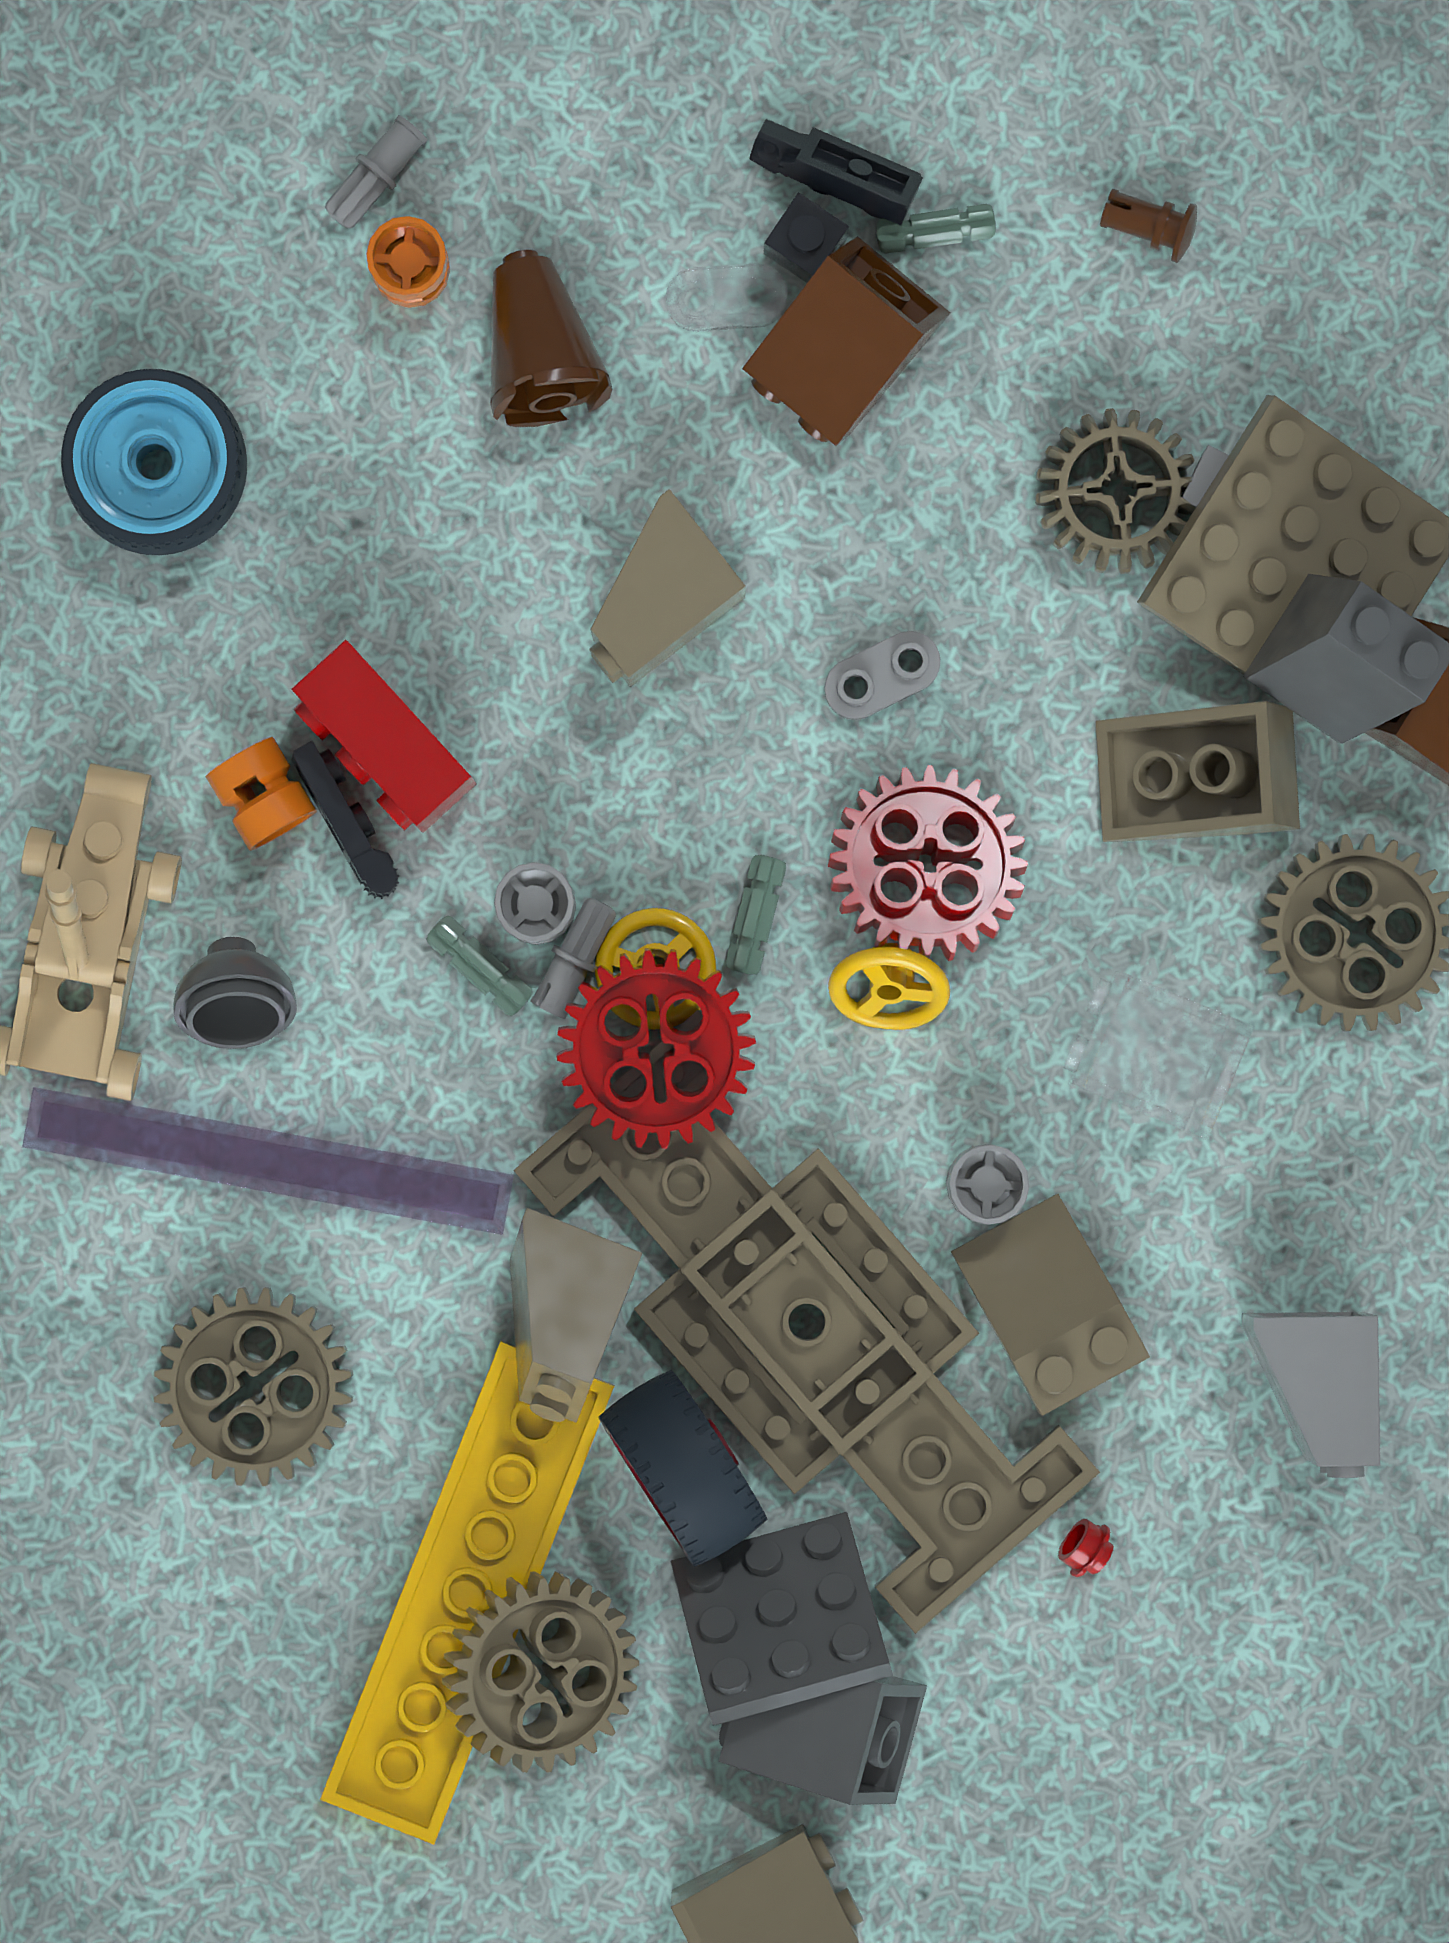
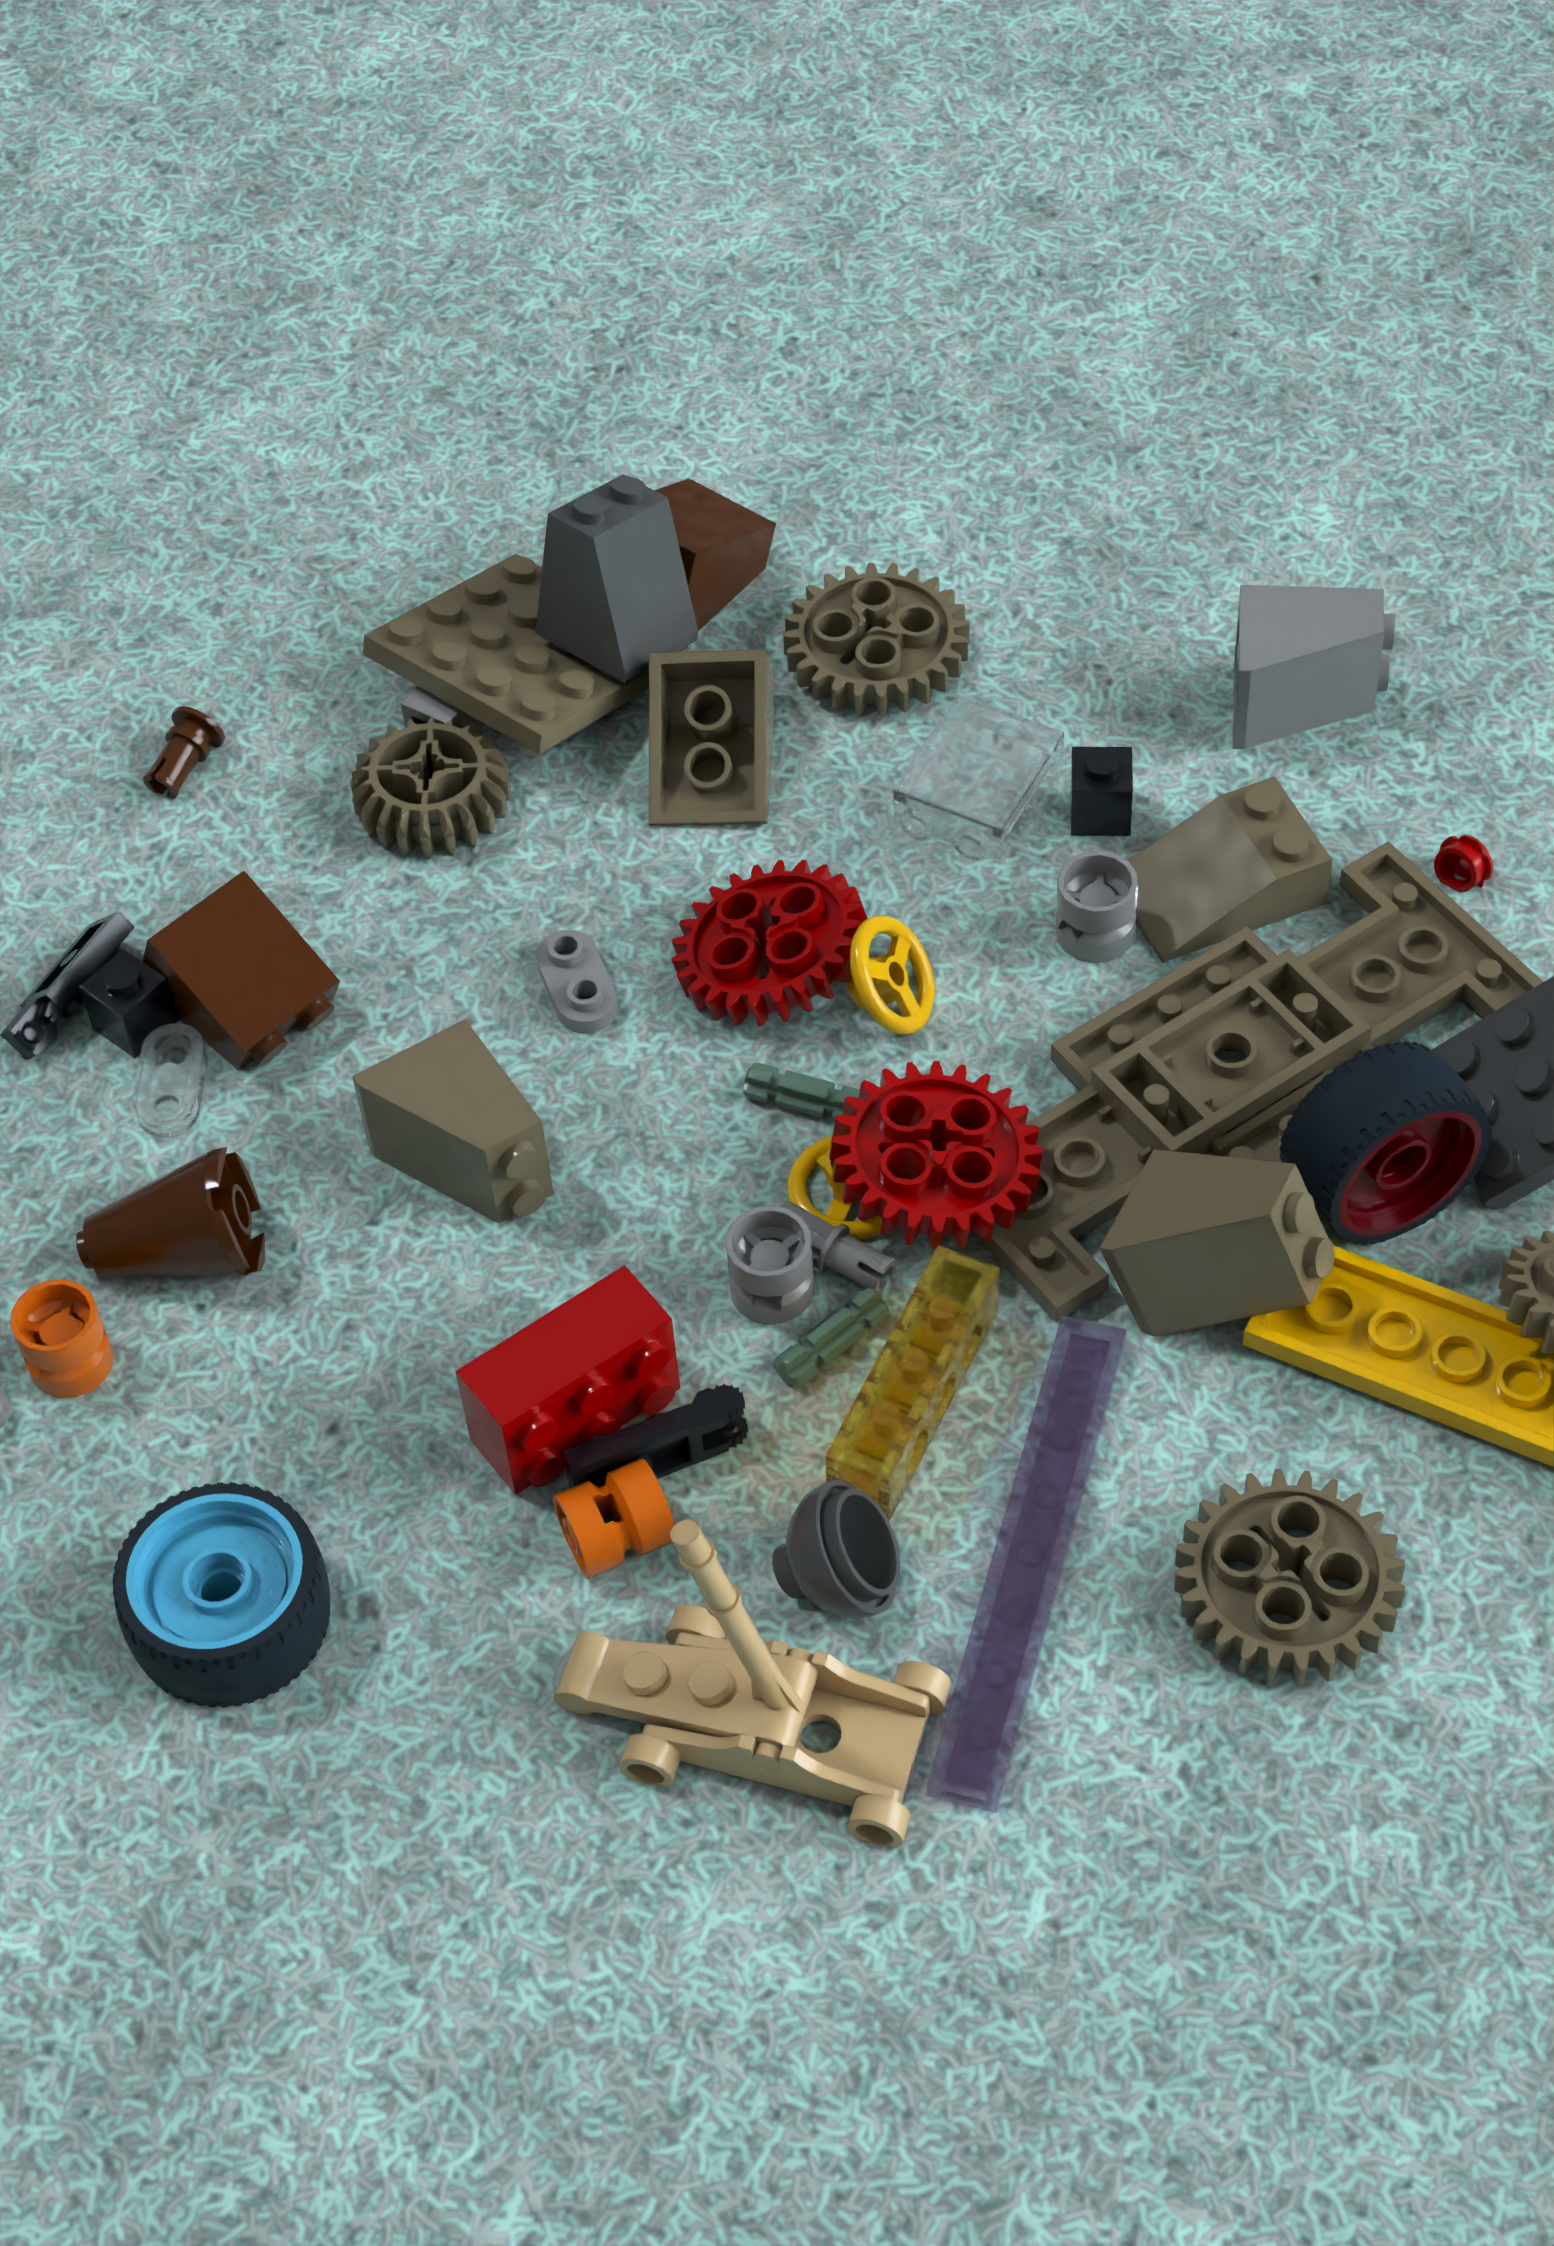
camera: 80 degrees left, 35 degrees down
(414, 1046) = (915, 1377): none -> clear yellow brick
(936, 228) = (145, 907): sand green axle -> none
(1146, 1181) = (1101, 791): none -> black brick

